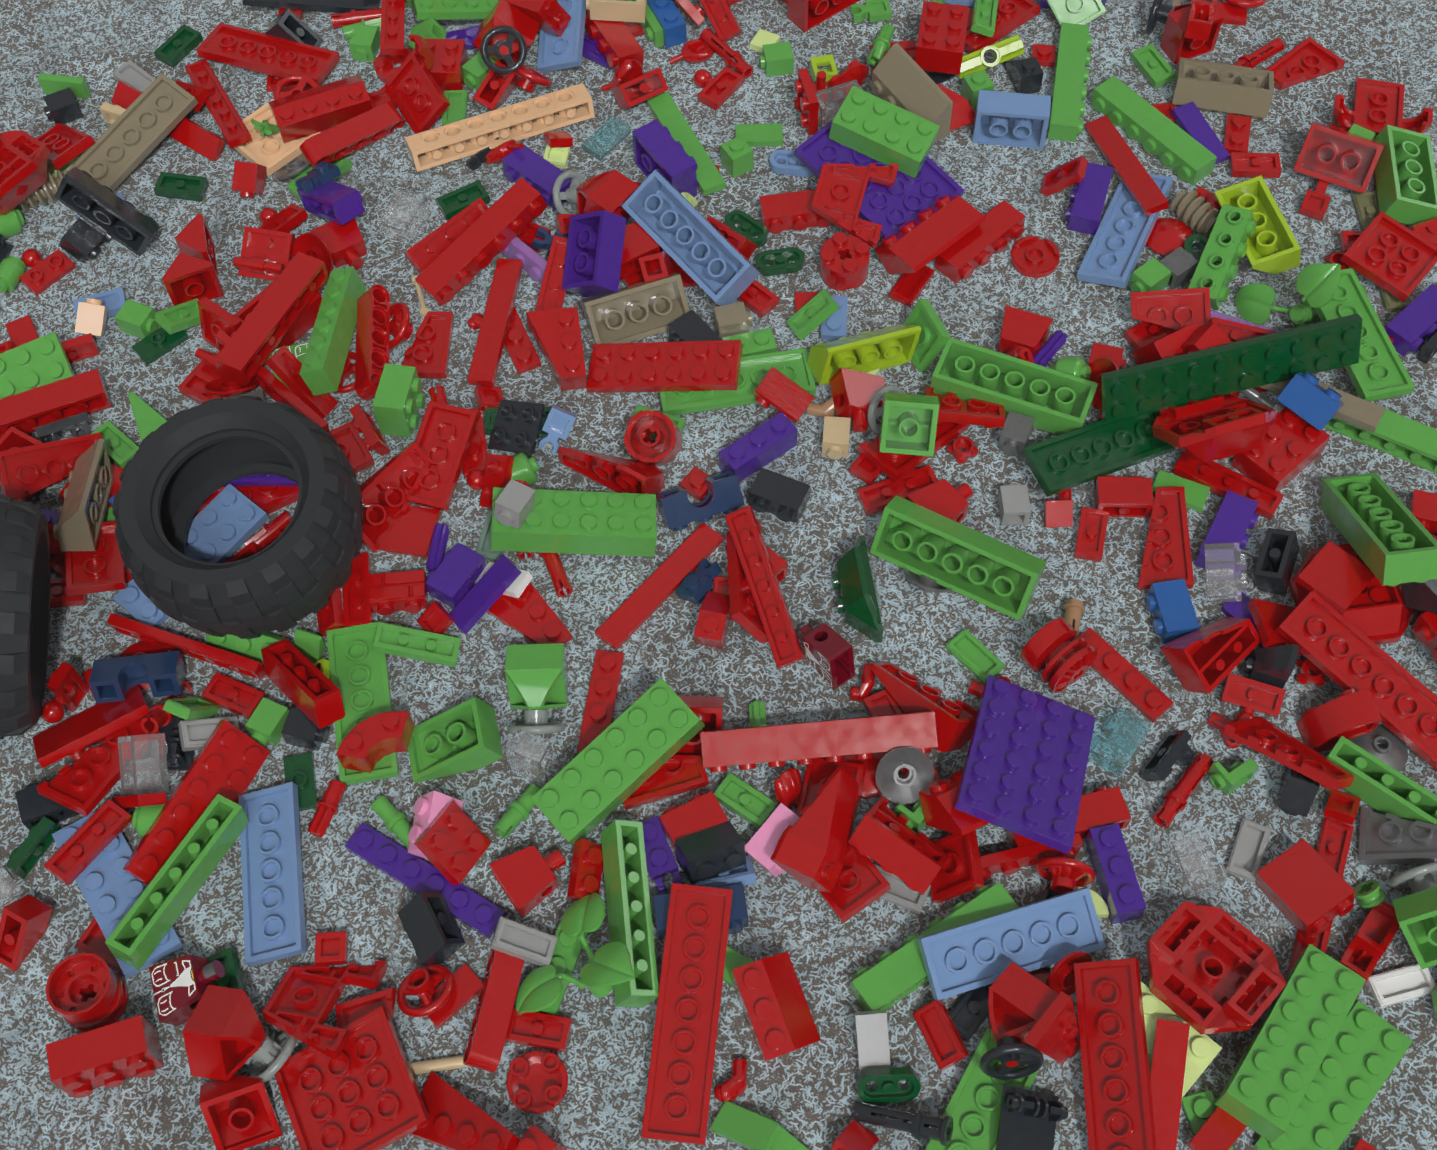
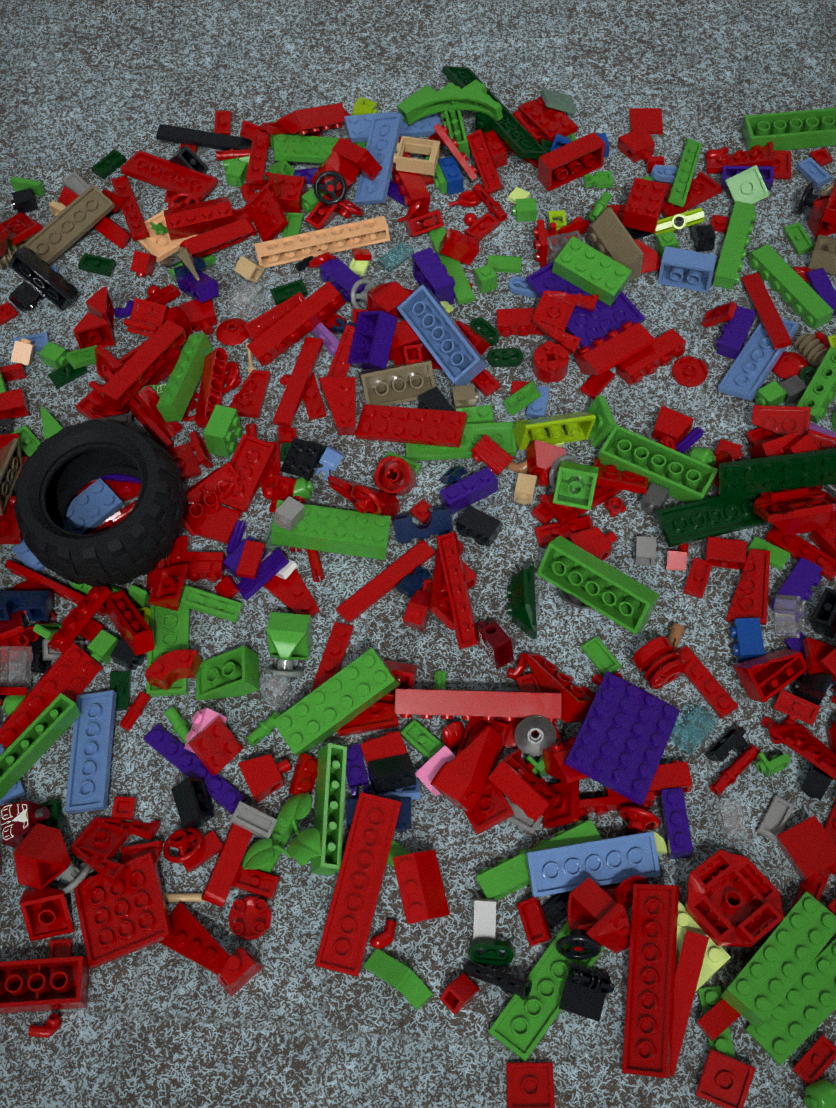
camera: 10 degrees right, 0 degrees up
(228, 685) = (79, 618): none -> red plate
(234, 248) = (125, 312): none -> dark purple arm
(314, 166) = (187, 259): none -> dark tan piece
(352, 626) = (169, 586): none -> red slope
(389, 268) = (231, 336): none -> red dish
(402, 173) = (249, 269): none -> tan brick
(465, 575) = (250, 559): none -> red tile
(617, 478) = (365, 502): none -> red piece
(695, 115) = (459, 246): none -> red brick
(733, 429) = (453, 475): none -> dark blue plate

